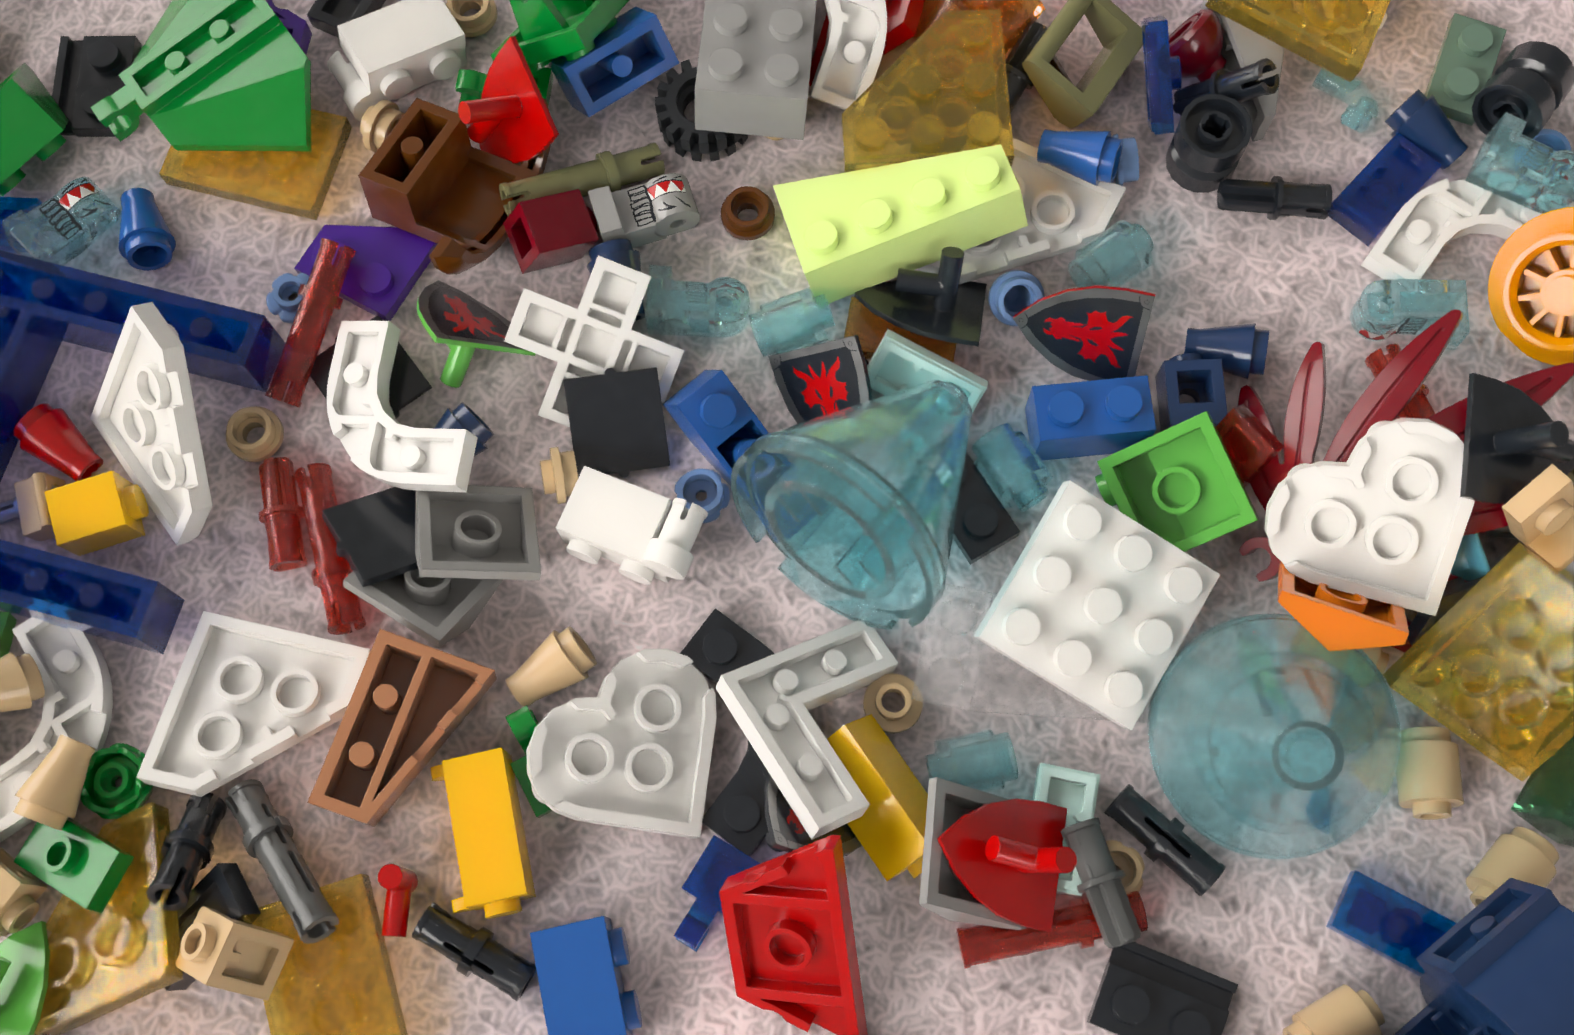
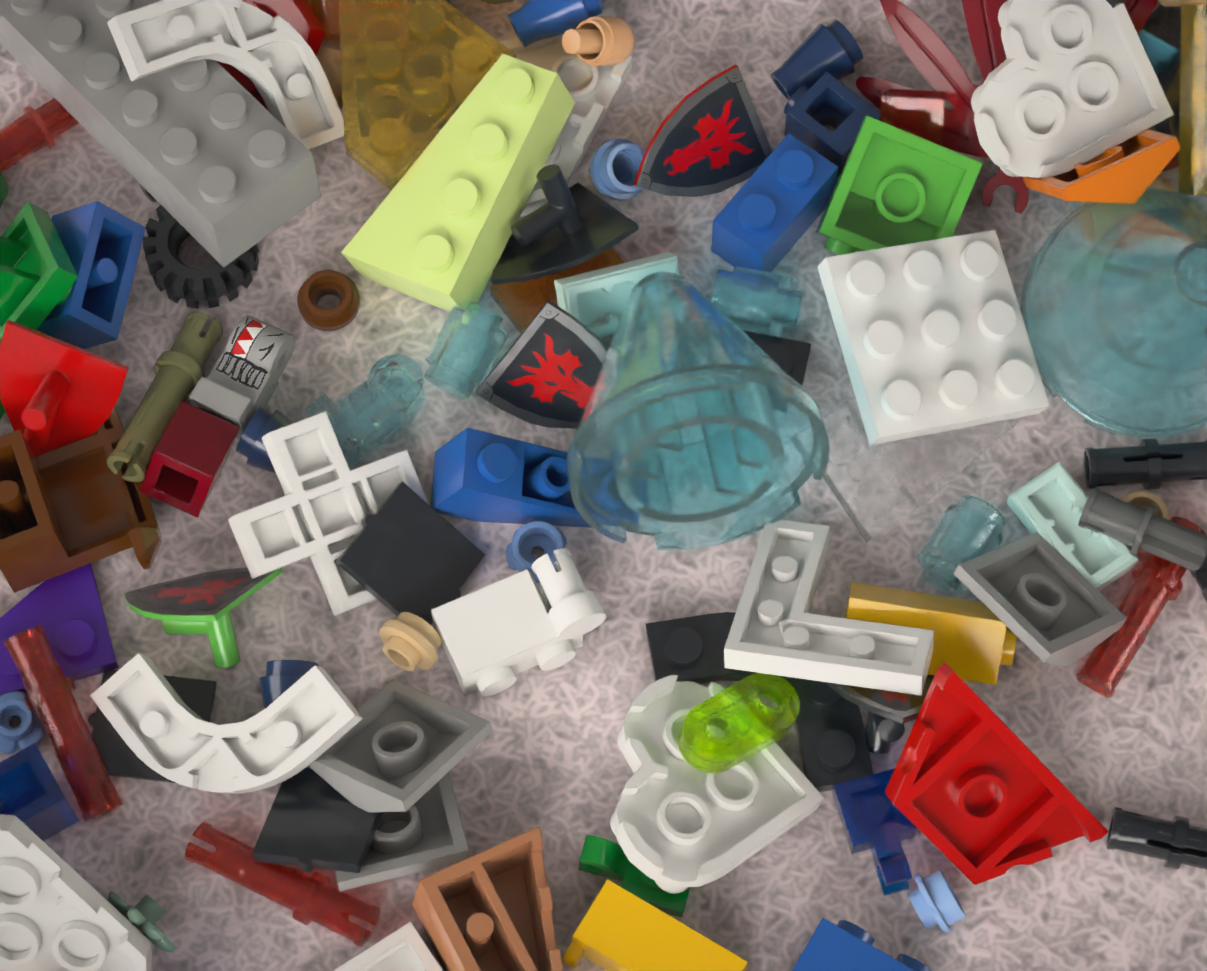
camera: 50 degrees left, 5 degrees down
(226, 486) = (144, 916): none -> sand green plant
(243, 422) = (104, 842): tan plate -> none
(281, 515) = (209, 898): clear red axle -> none
(552, 667) = (569, 792): tan cone -> none
(695, 732) = (744, 720): none -> clear neon green plate
(699, 980) = (936, 901): none -> light blue plate
(892, 721) = (841, 573): tan plate -> none
(1011, 858) = (1065, 572): red shield -> none
(1088, 199) = (600, 41): none -> light nougat cylinder
(1112, 256) = (659, 72): clear light blue brick -> none

